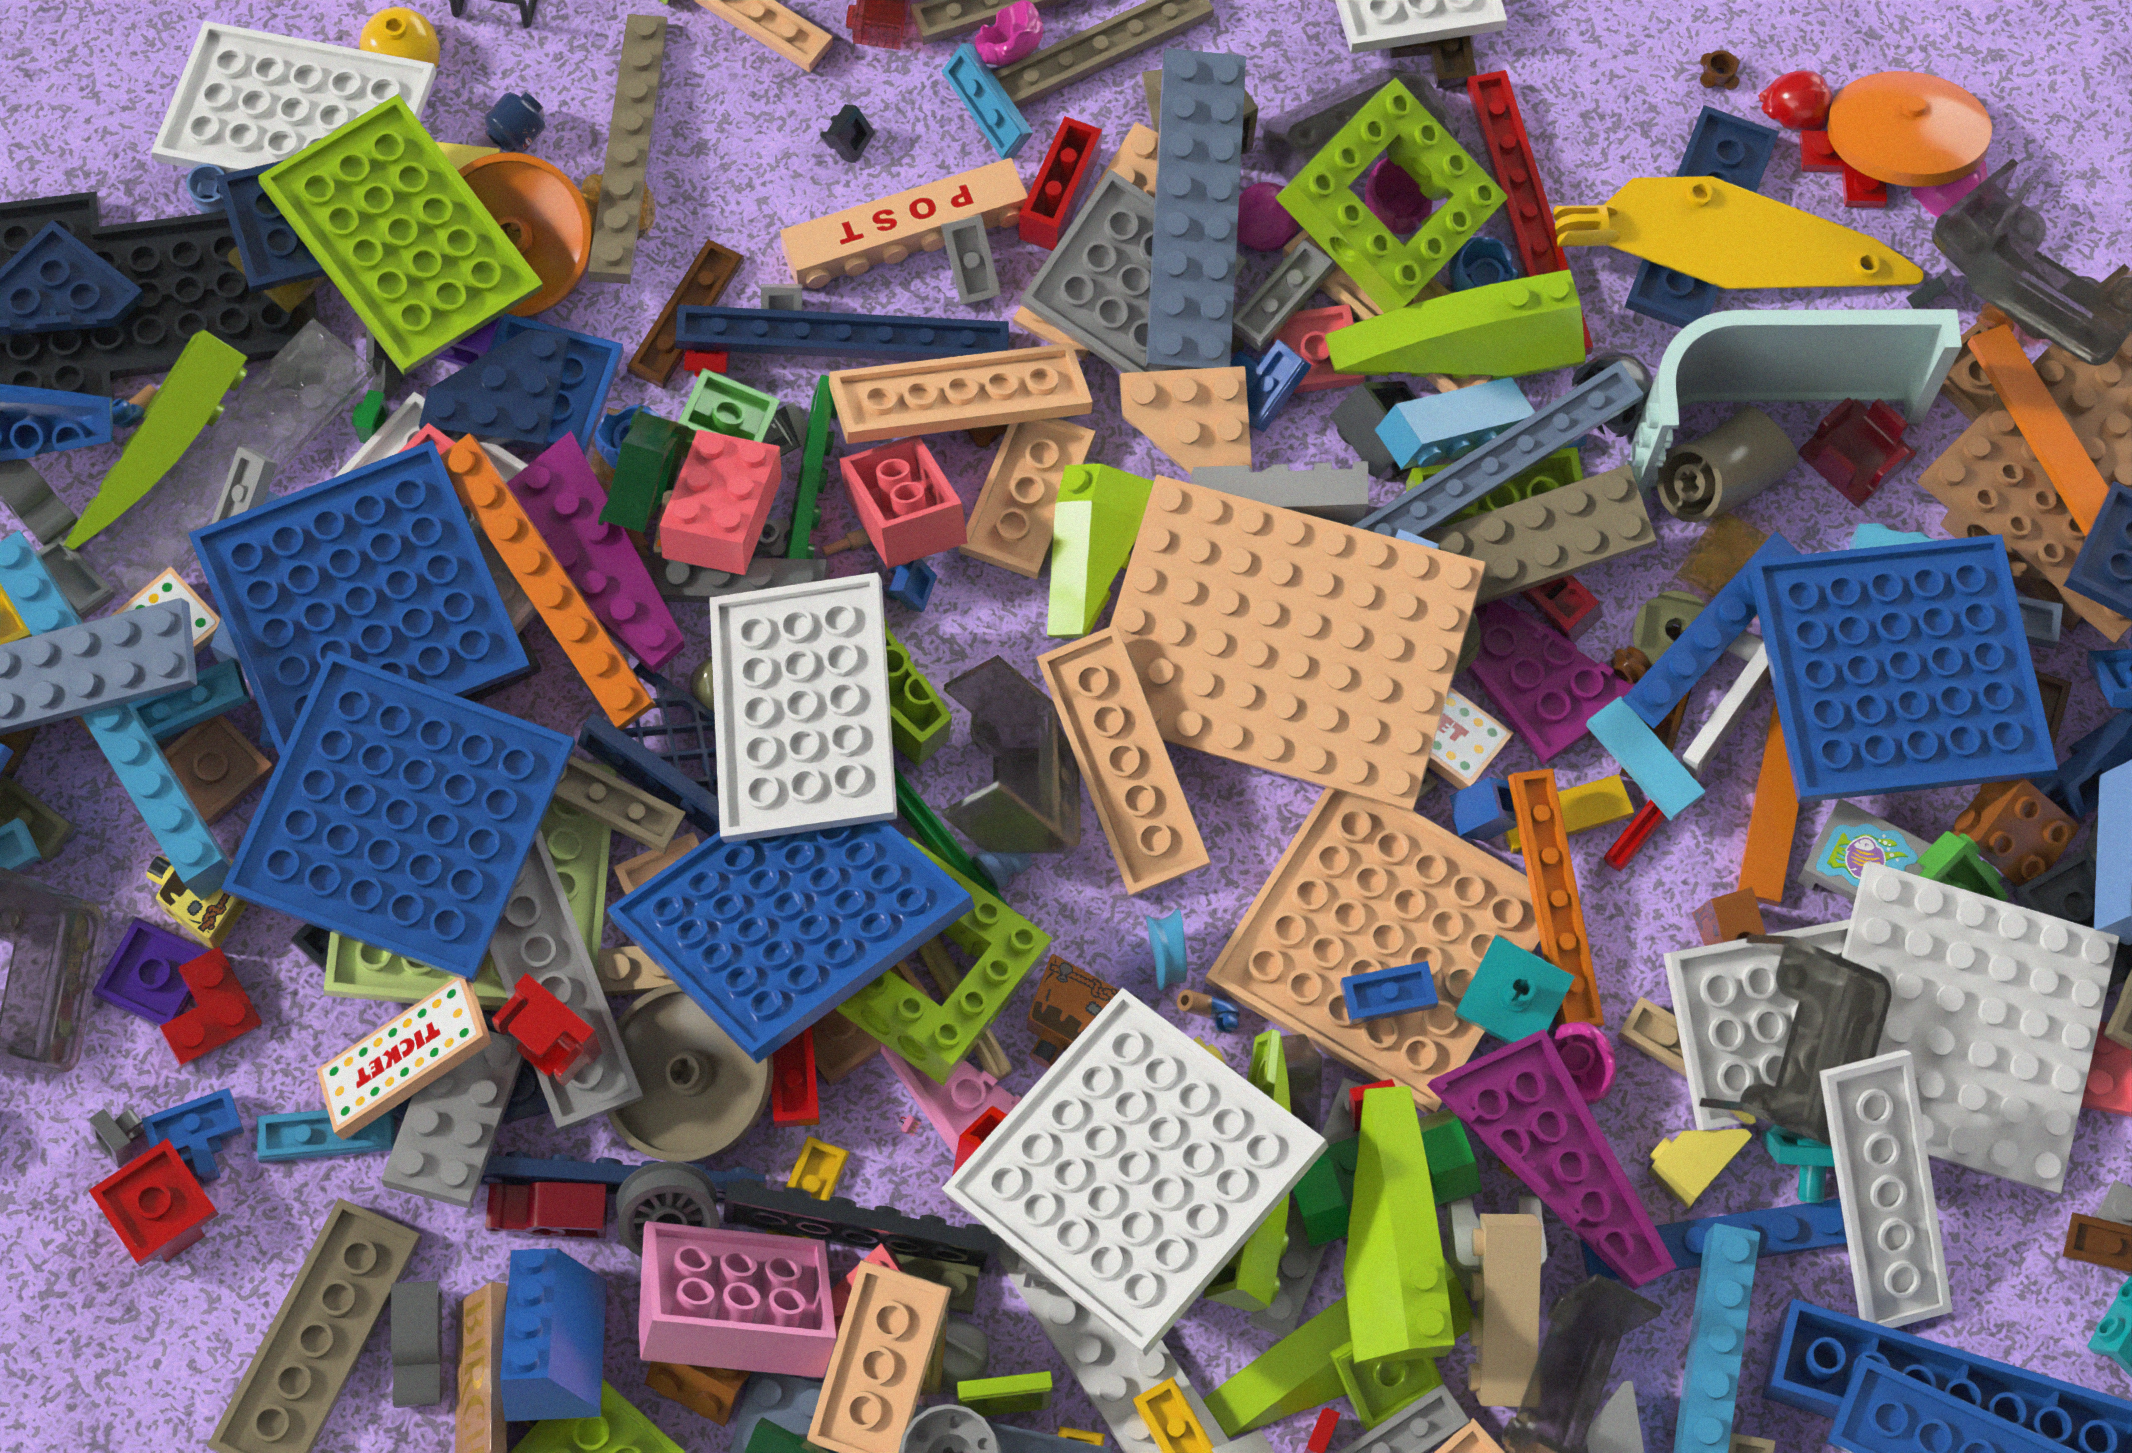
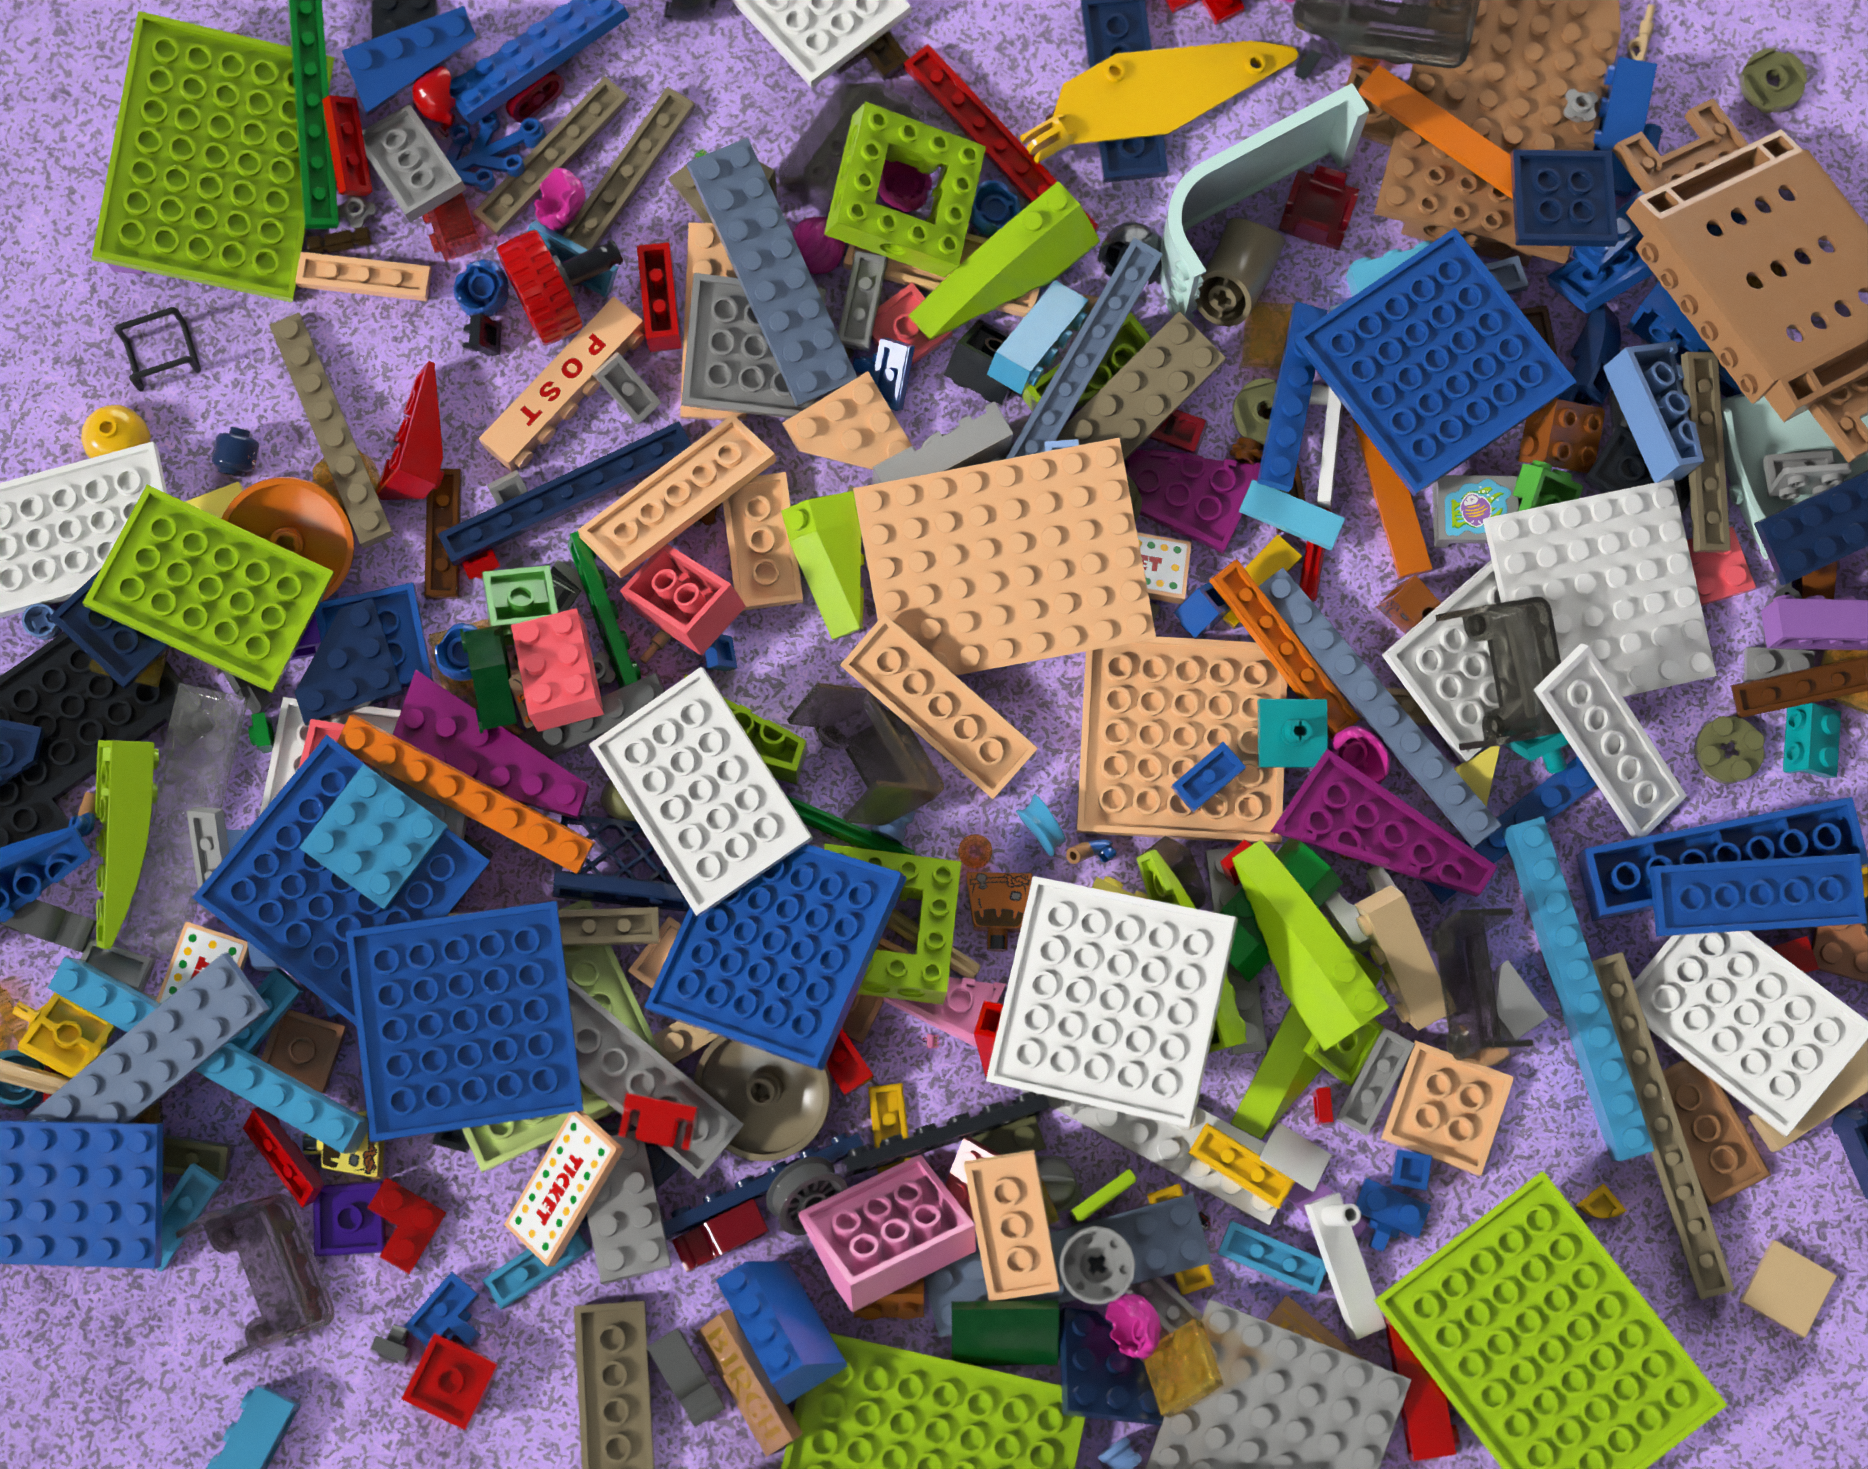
camera: 25 degrees left, 10 degrees up
(123, 866) = (283, 1156): none -> red plate
(419, 571) = (374, 837): none -> dark azure plate
(710, 209) = (419, 455): none -> red wedge
(874, 85) = (482, 288): none -> blue hair
(943, 107) = (547, 284): none -> red wheel
(1077, 929) = (975, 840): none -> clear orange plate
(1633, 1024) = (1380, 710): none -> sand blue plate
(2030, 1312) = (1711, 755): none -> olive plate

